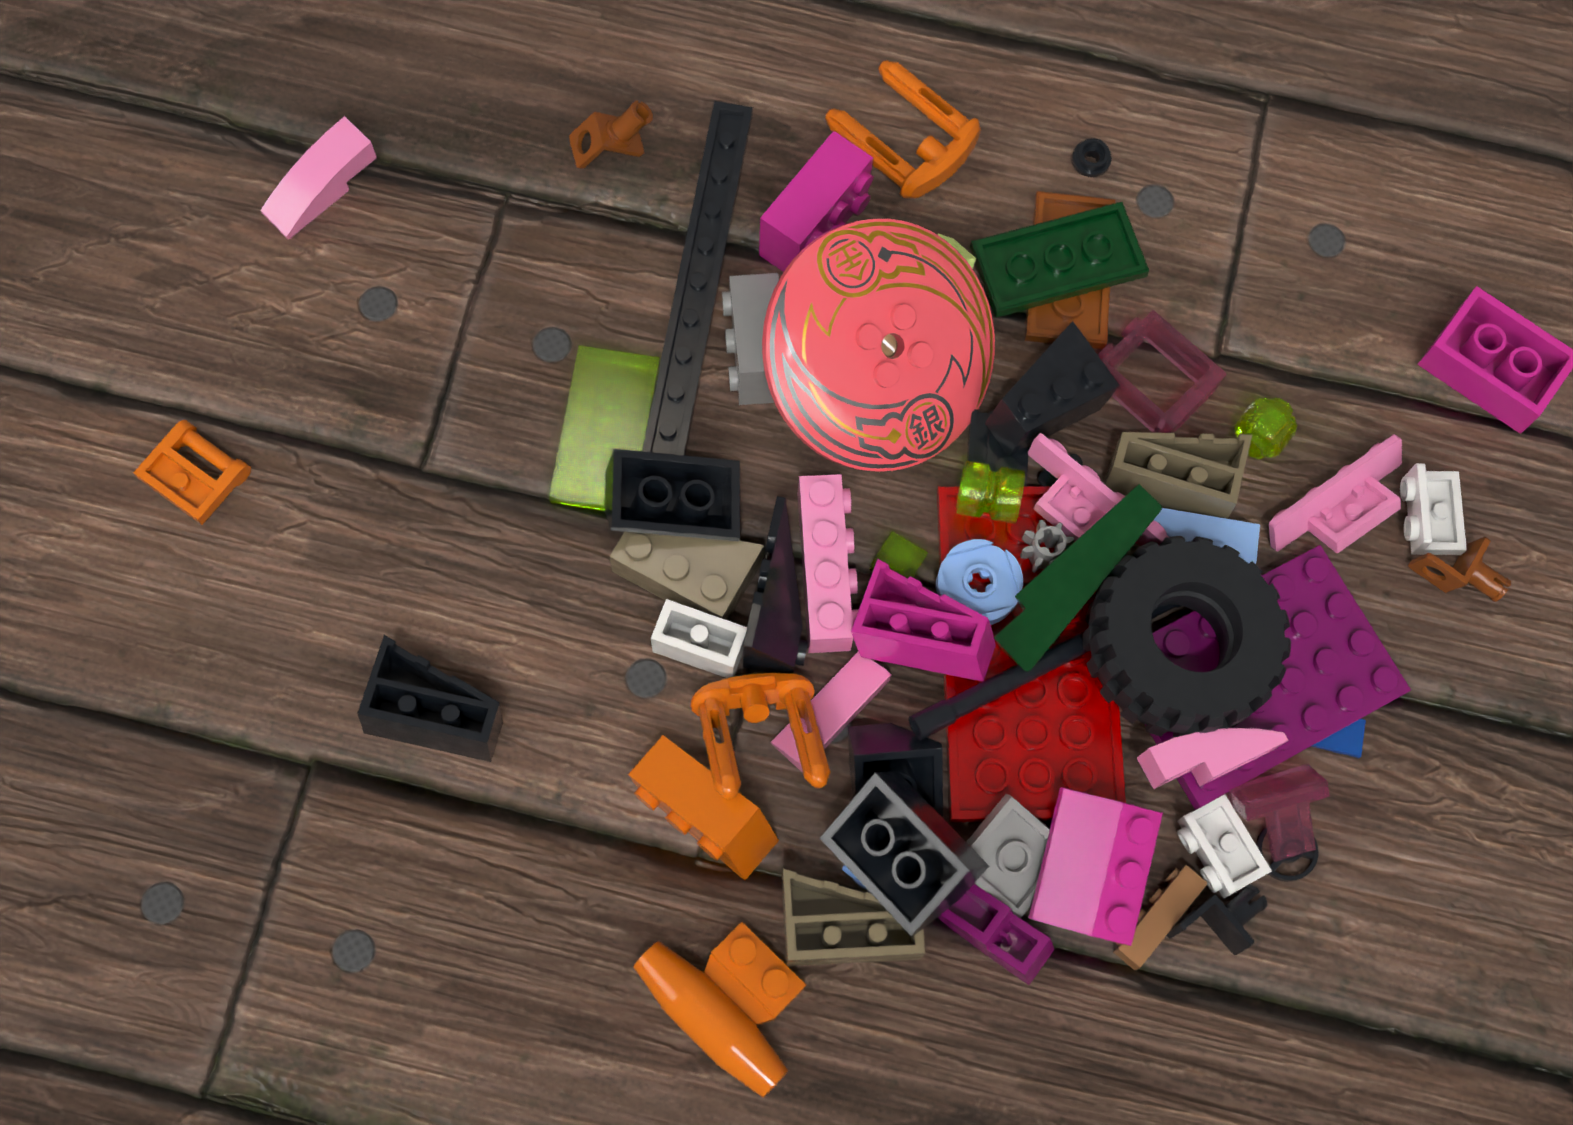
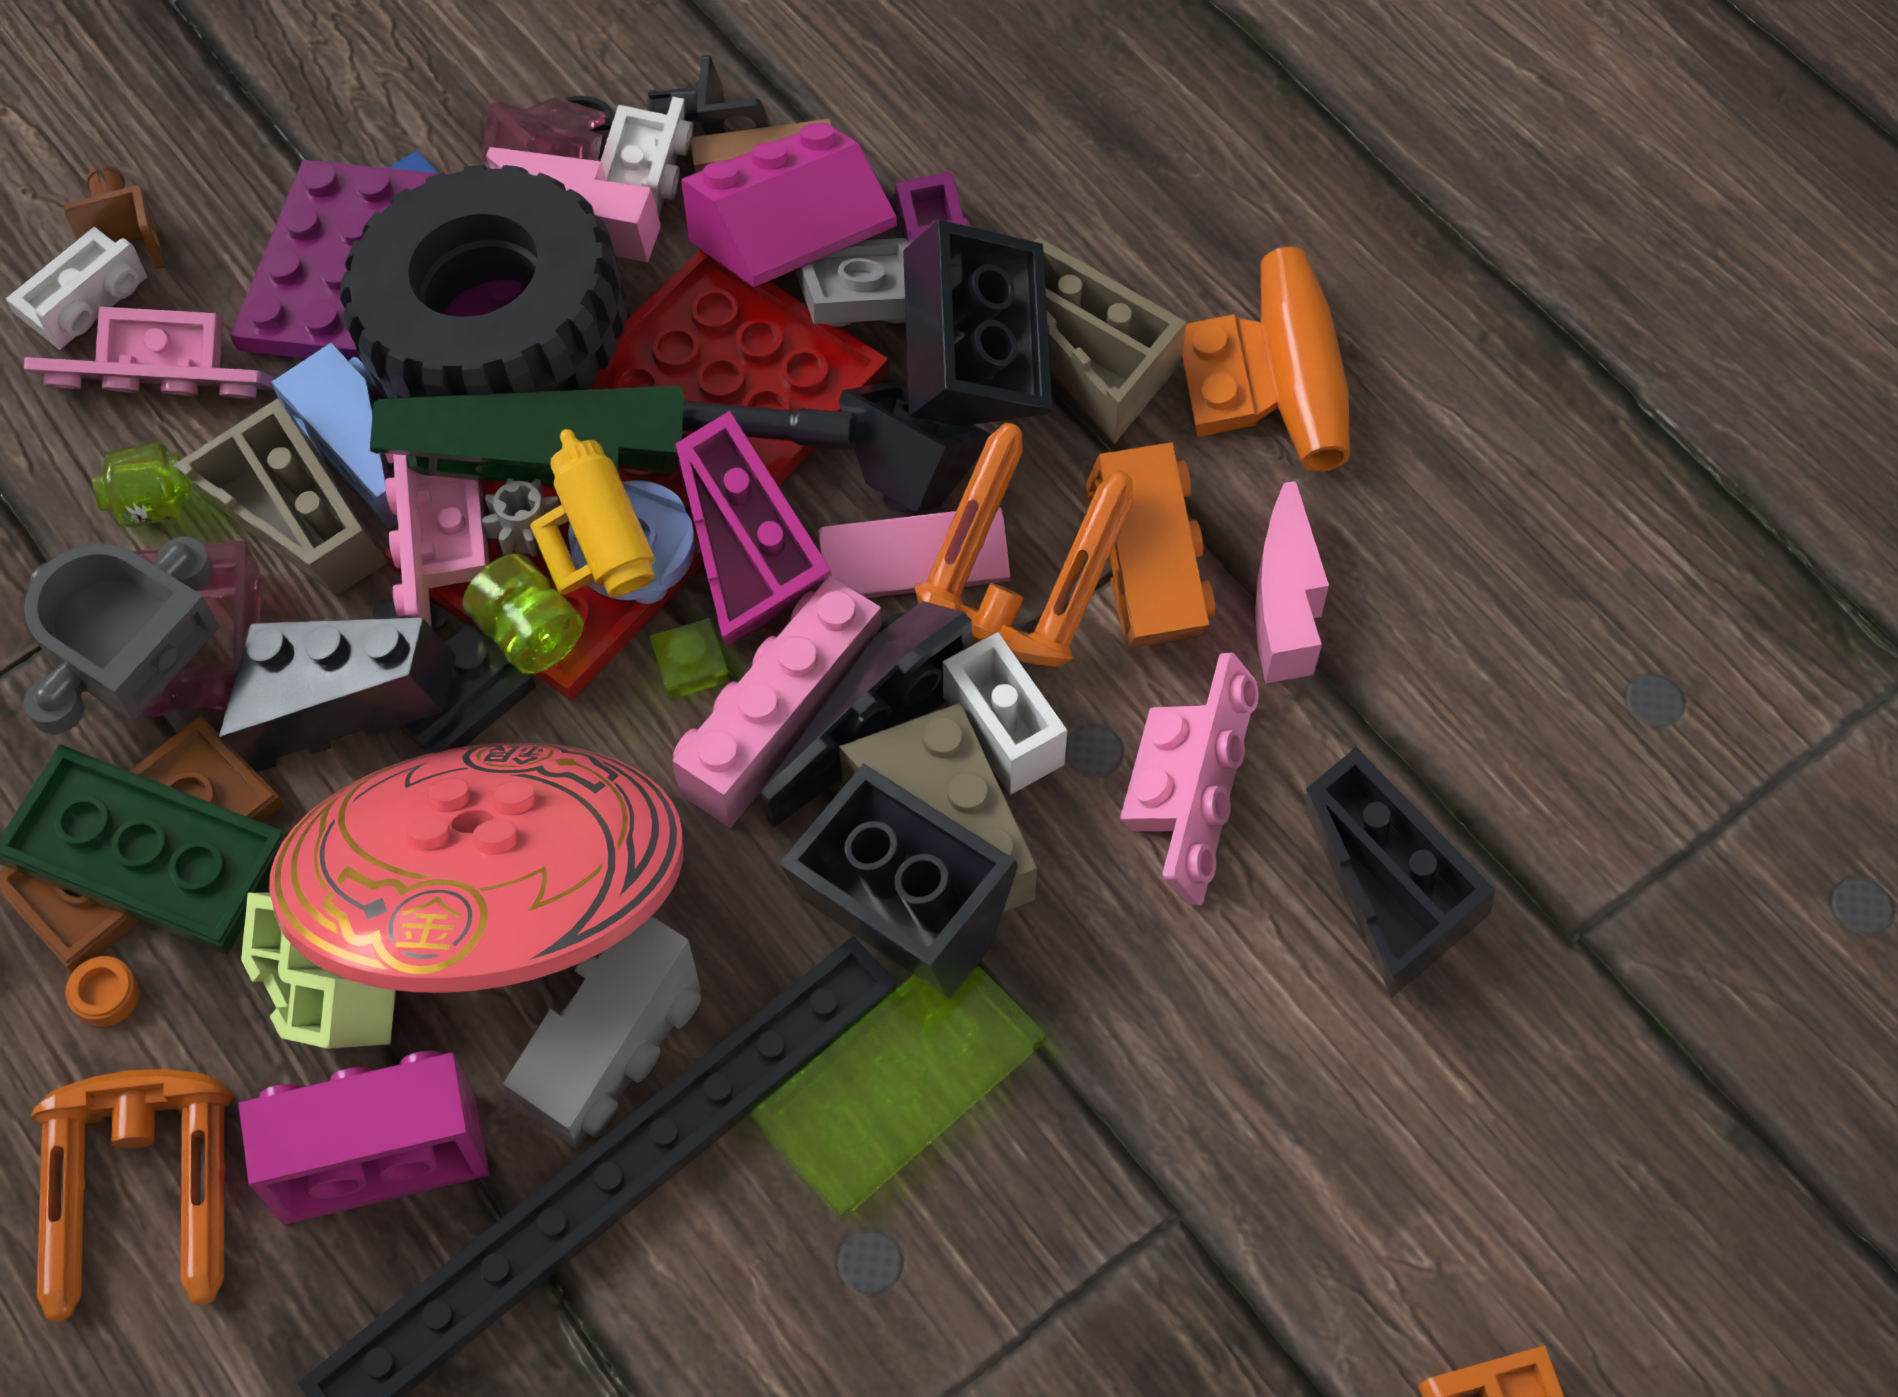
camera: 135 degrees left, 10 degrees down
(580, 691) = (1188, 775): none -> bright pink bracket
(606, 845) = (1289, 592): none -> bright pink slope
(993, 552) = (601, 520): none -> yellow piece
(1011, 197) = (102, 991): none -> orange tile
(1178, 326) = (115, 627): none -> dark grey piece

